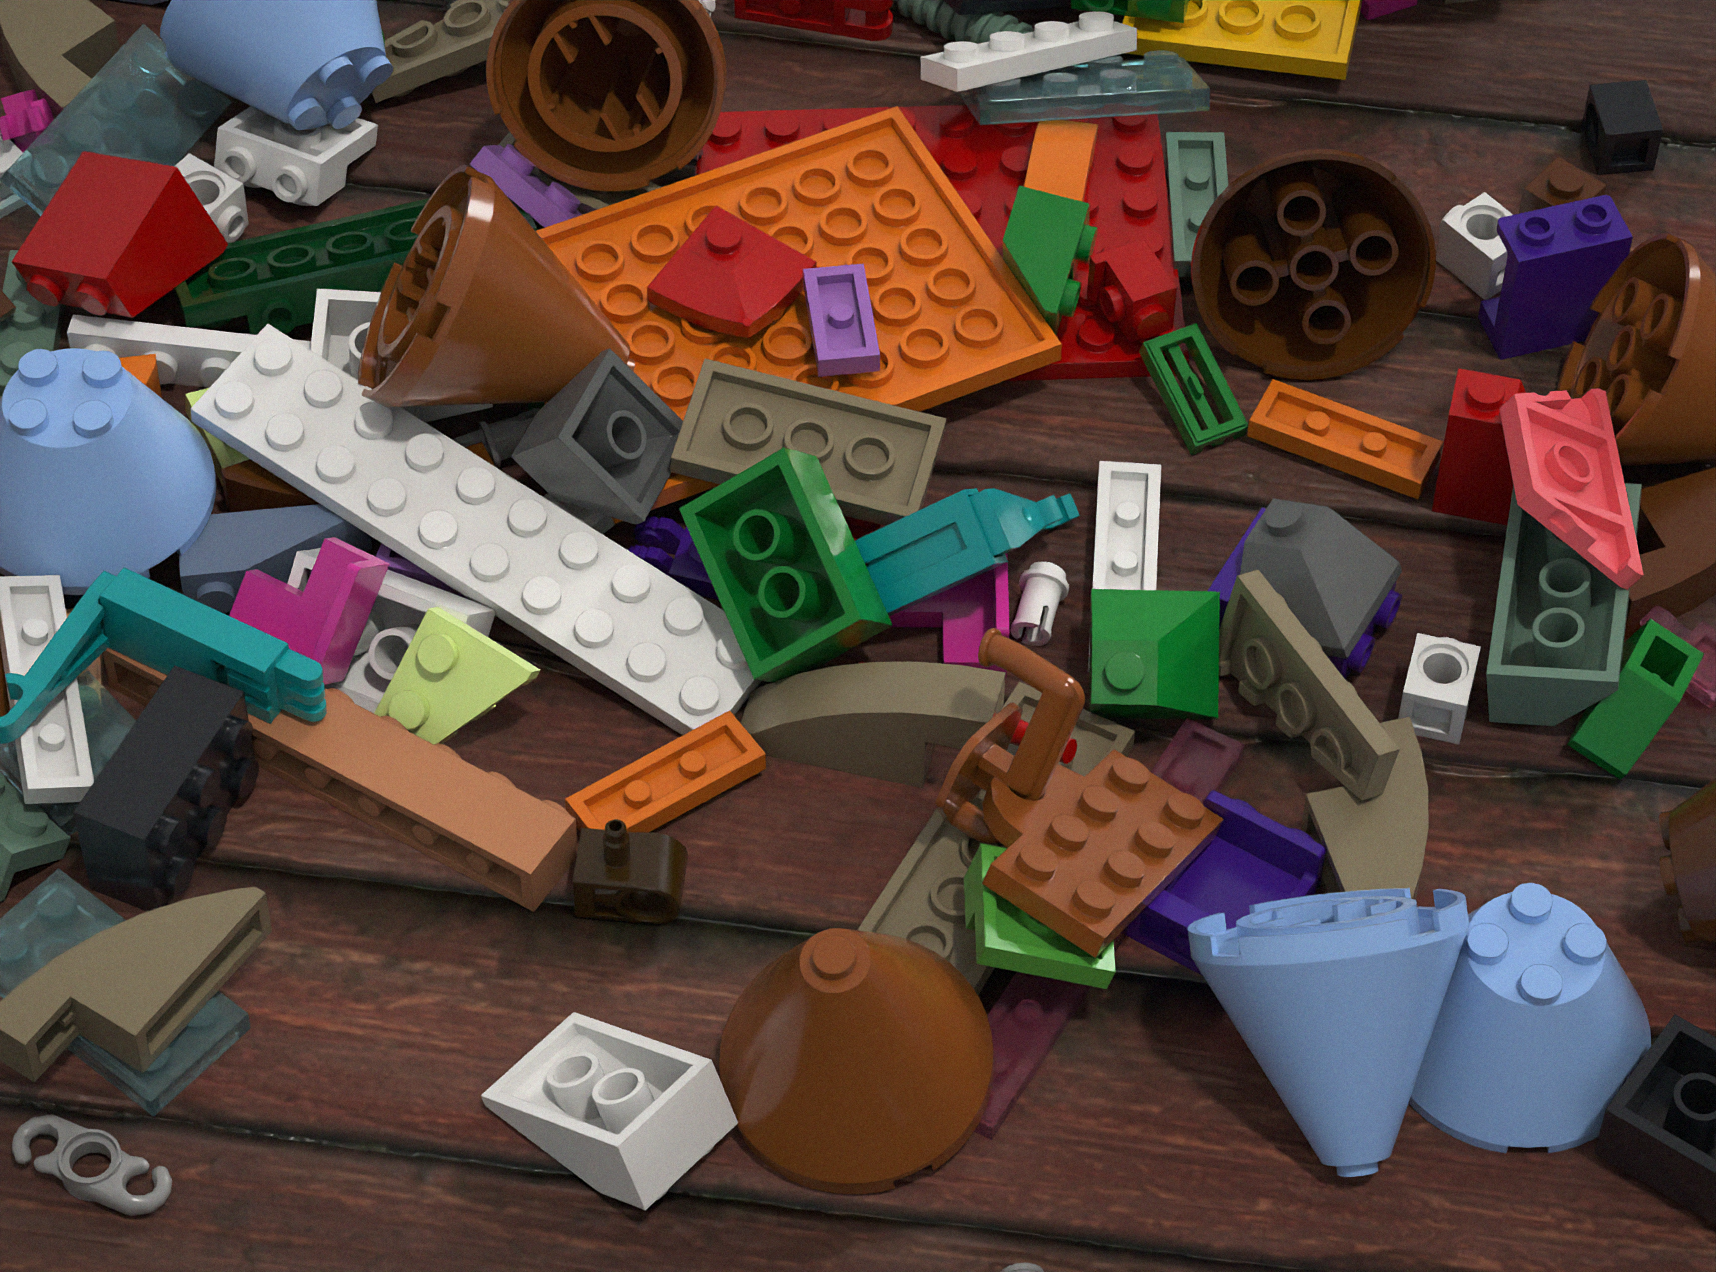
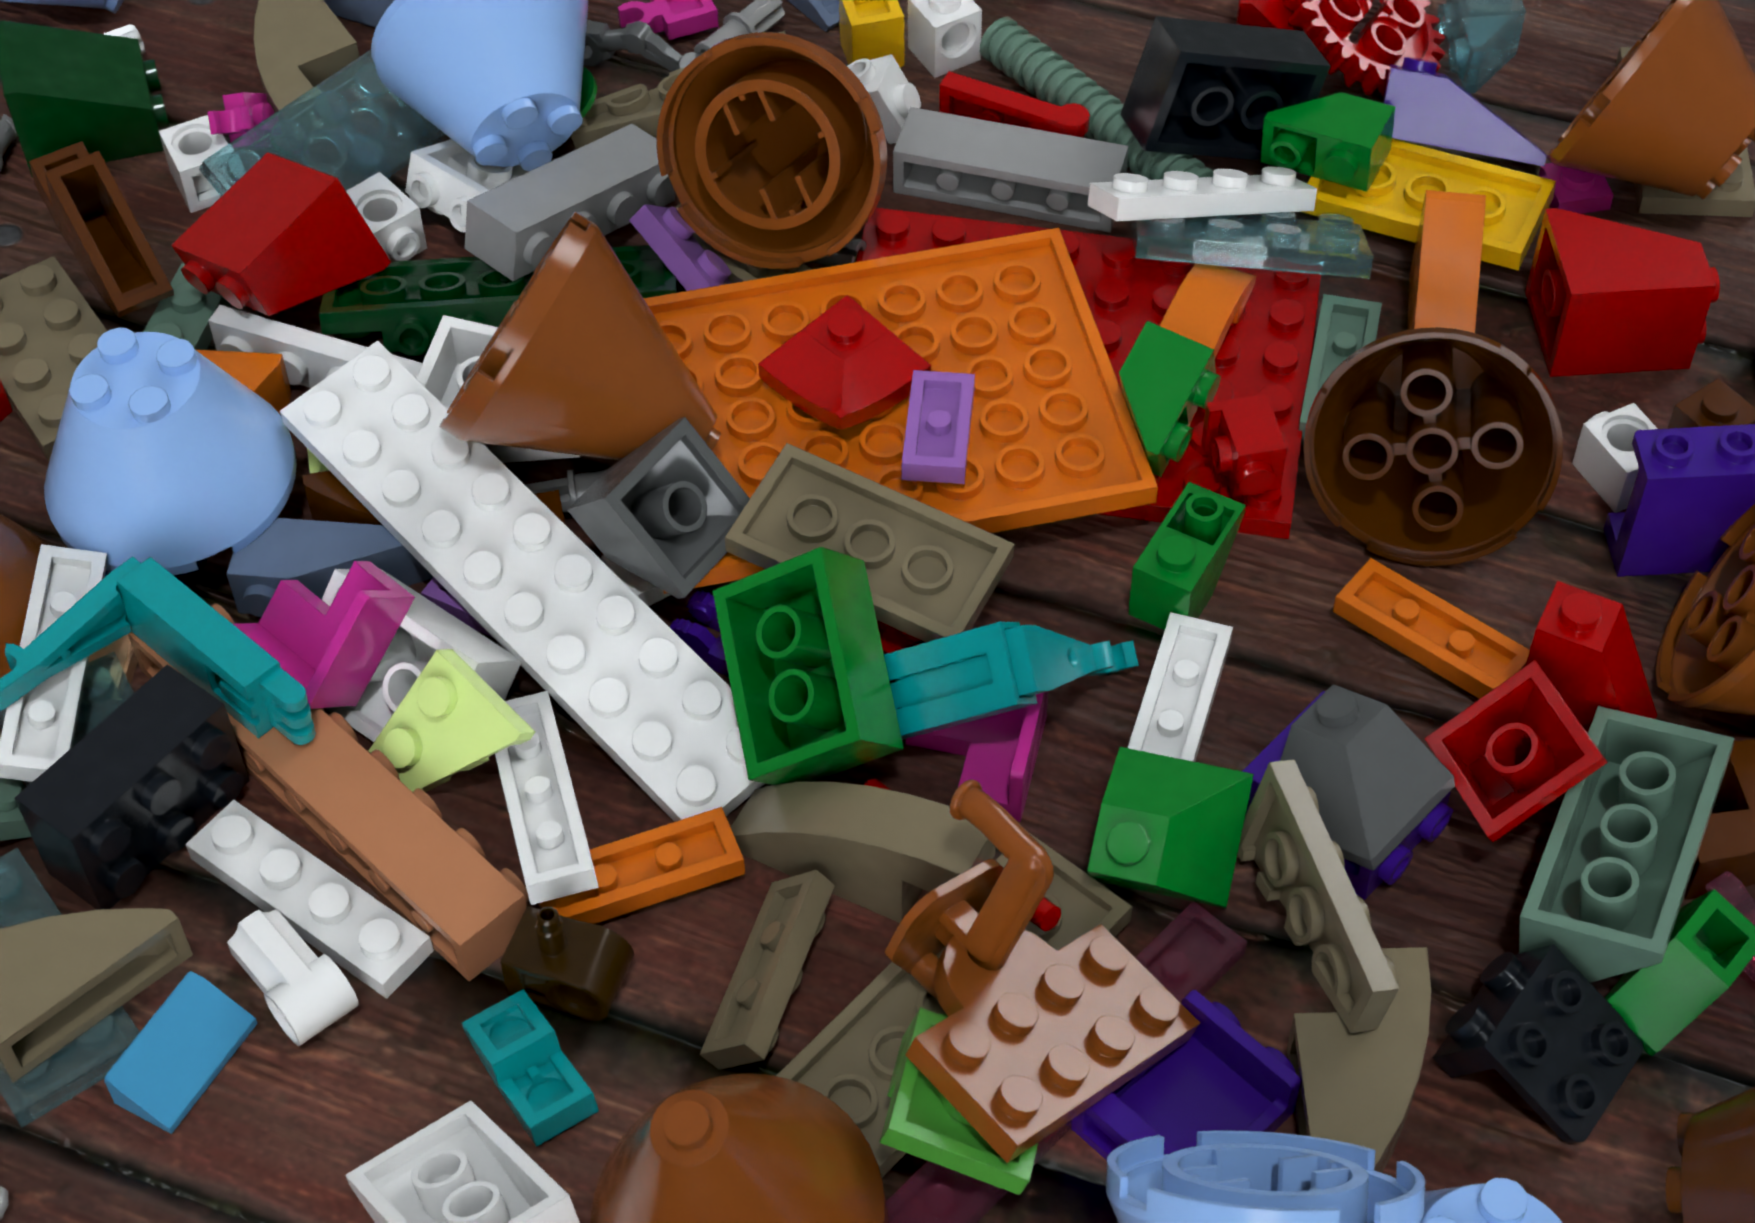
camera: 15 degrees right, 0 degrees up
(286, 1021) = (179, 1053): none -> dark azure slope
(357, 863) = (312, 897): none -> white plate
(382, 943) = (298, 986): none -> white piece
(398, 153) = (601, 181): none -> light grey brick
(567, 741) = (544, 807): none -> white plate
(617, 974) = (530, 1067): none -> teal slope
(816, 847) = (768, 971): none -> dark tan plate
(827, 52) = (1004, 167): none -> light grey brick
(1042, 590) = (1077, 738): white pin -> none
(1100, 406) = (1185, 556): none -> green slope
(1193, 436) = (1299, 602): green tile -> none
(1279, 87) = (1447, 262): none -> orange slope
(1439, 687) = (1466, 941): white brick -> none
(1445, 91) = (1617, 296): none -> red slope
(1450, 529) = (1515, 750): none -> red slope
(1529, 775) = (1545, 1037): none -> black bracket
(1572, 477) = (1657, 719): coral wing -> none

